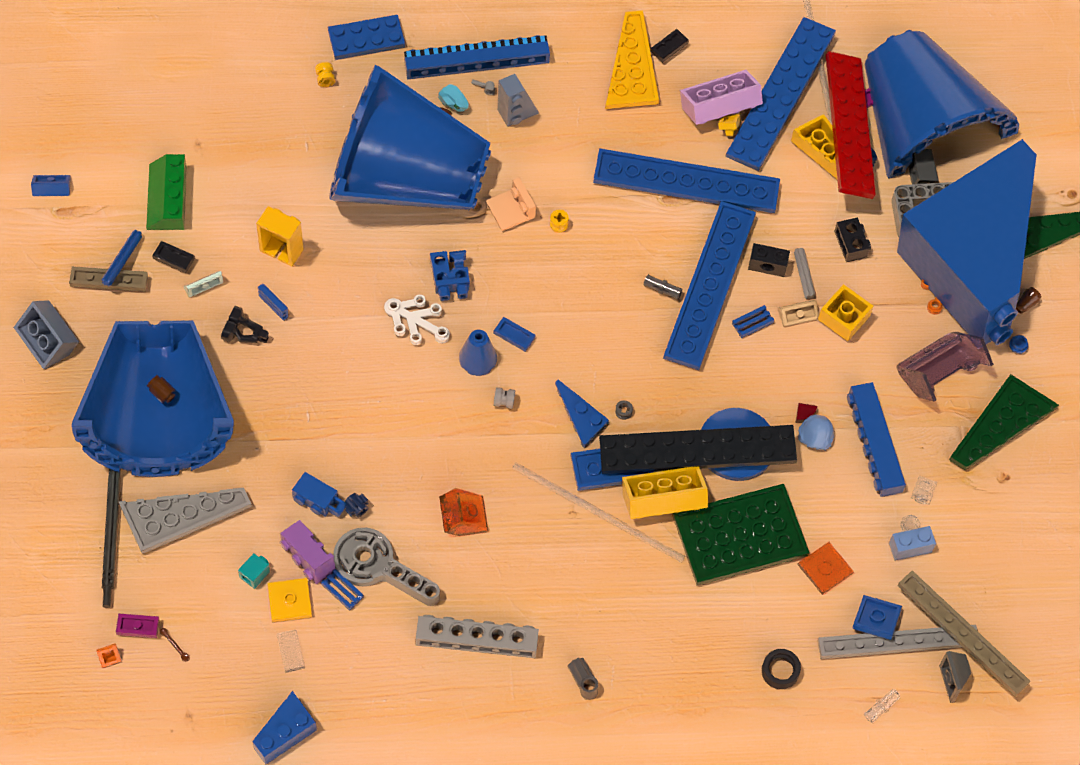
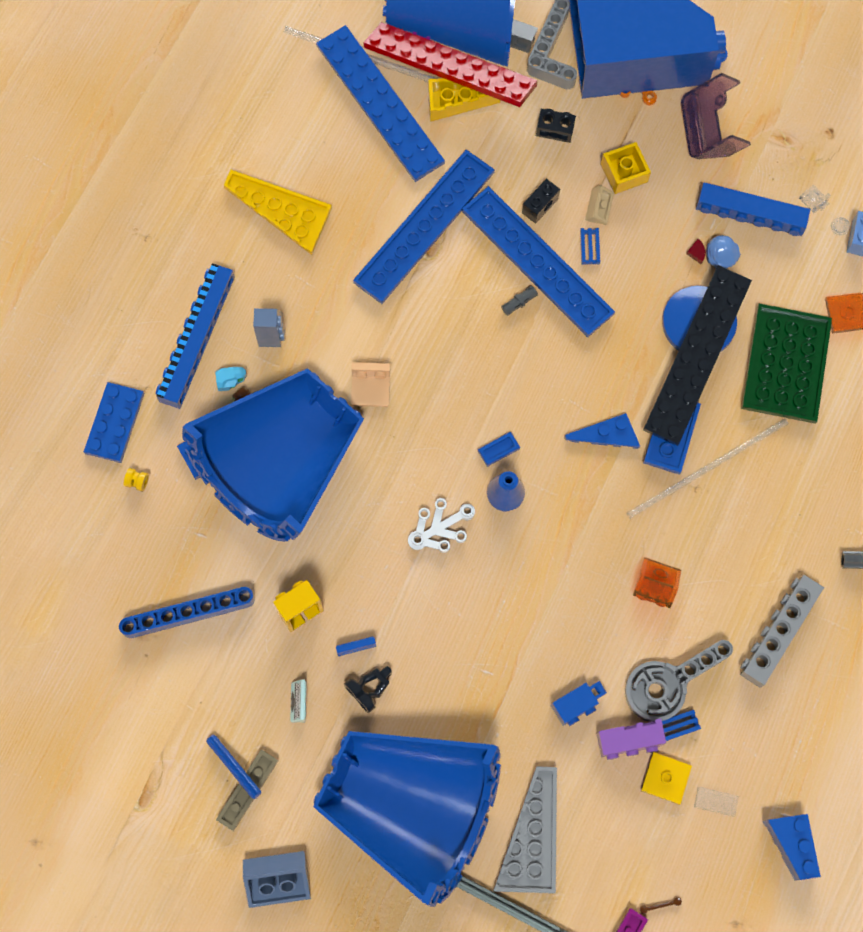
camera: 60 degrees left, 10 degrees up
(50, 185) = (108, 798): blue slope -> none
(161, 389) = (398, 795): reddish brown brick -> none
(167, 193) = (182, 690): green slope -> none
(173, 256) = (256, 716): black plate -> none
(230, 157) = (177, 611): none -> blue beam
(254, 570) = (624, 796): teal brick -> none
(356, 505) = (604, 672): dark blue gear -> none
(450, 280) = (415, 479): blue hips -> none
(489, 86) = (232, 341): light grey hand -> none
(504, 398) = (561, 489): light grey wheel -> none
(562, 223) = (407, 356): yellow wheel -> none
(621, 415) = (620, 390): dark grey bush -> none
(665, 492) = (725, 402): yellow brick -> none
(669, 45) = (278, 167): black plate -> none
(721, 97) = (361, 151): lavender brick -> none
(729, 123) = (389, 159): yellow tile -> none
(804, 273) = (566, 180): light grey axle -> none
(1005, 417) = (782, 104): dark green wing -> none

